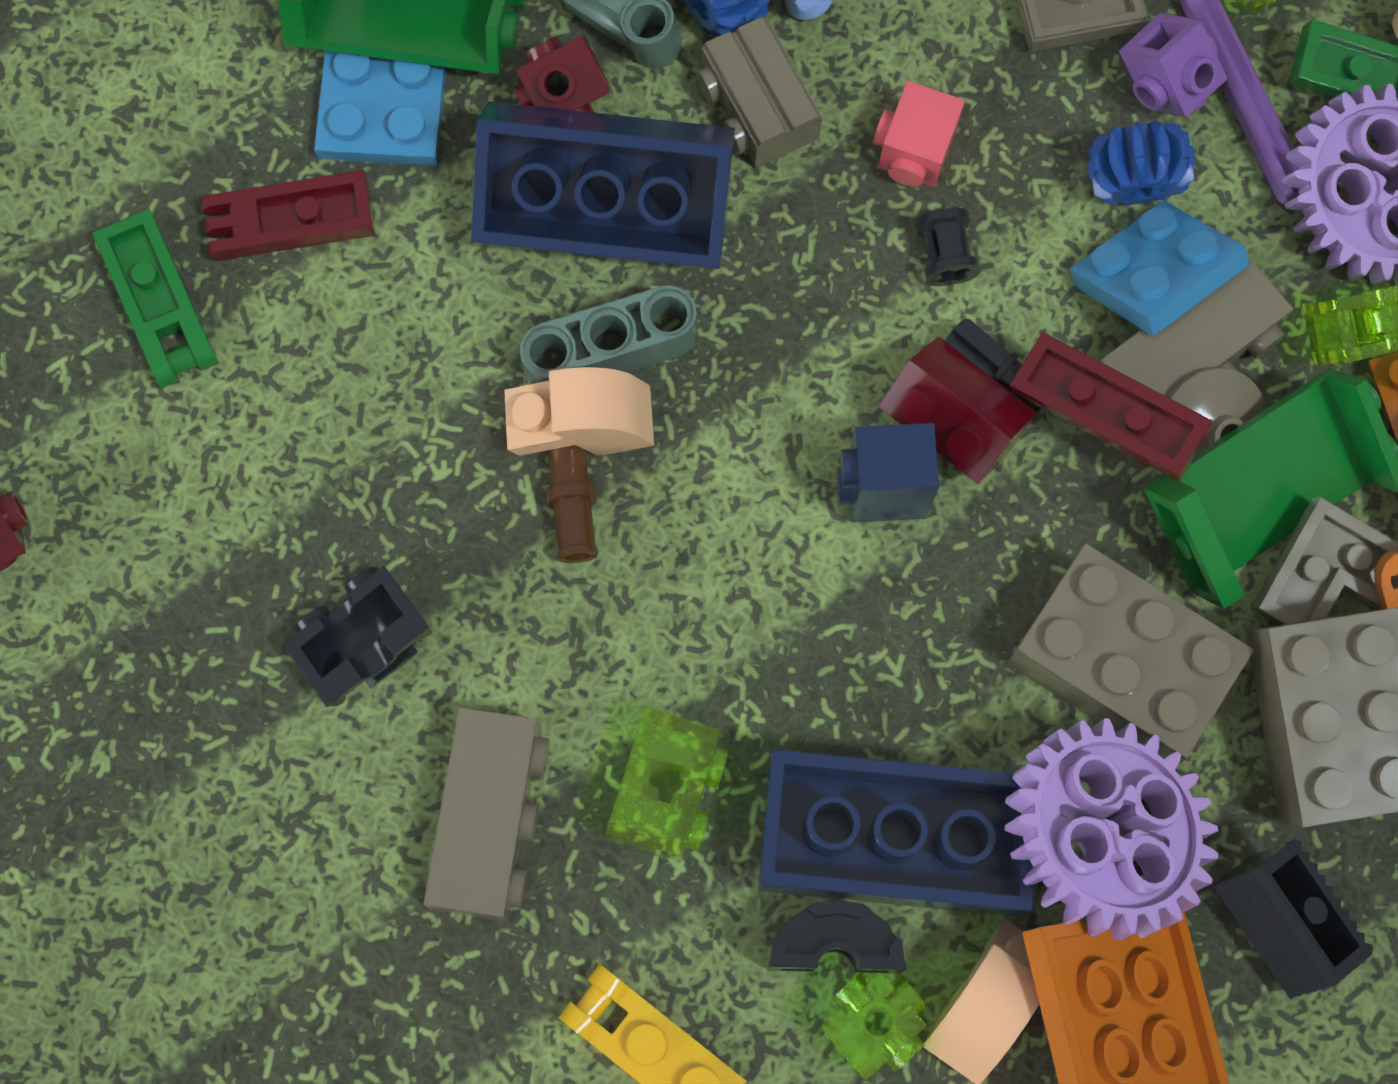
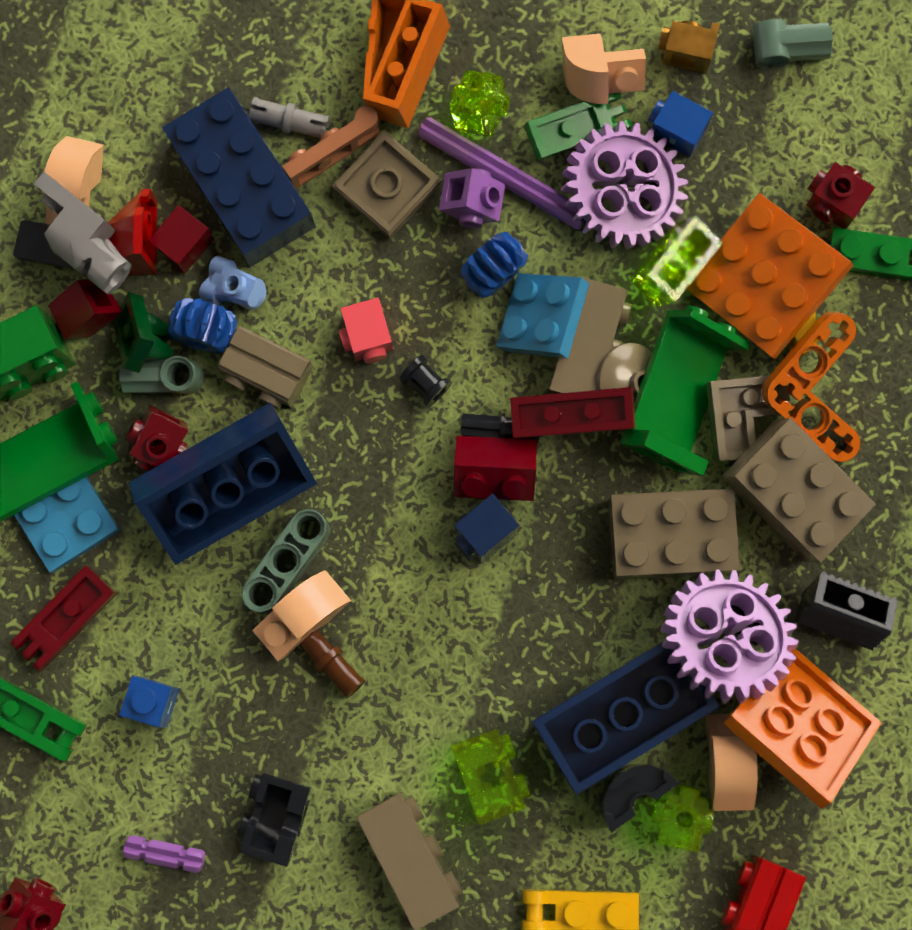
camera: 30 degrees left, 5 degrees up
(190, 584) = (164, 854): none -> medium lavender axle
(314, 384) = (149, 701): none -> blue brick

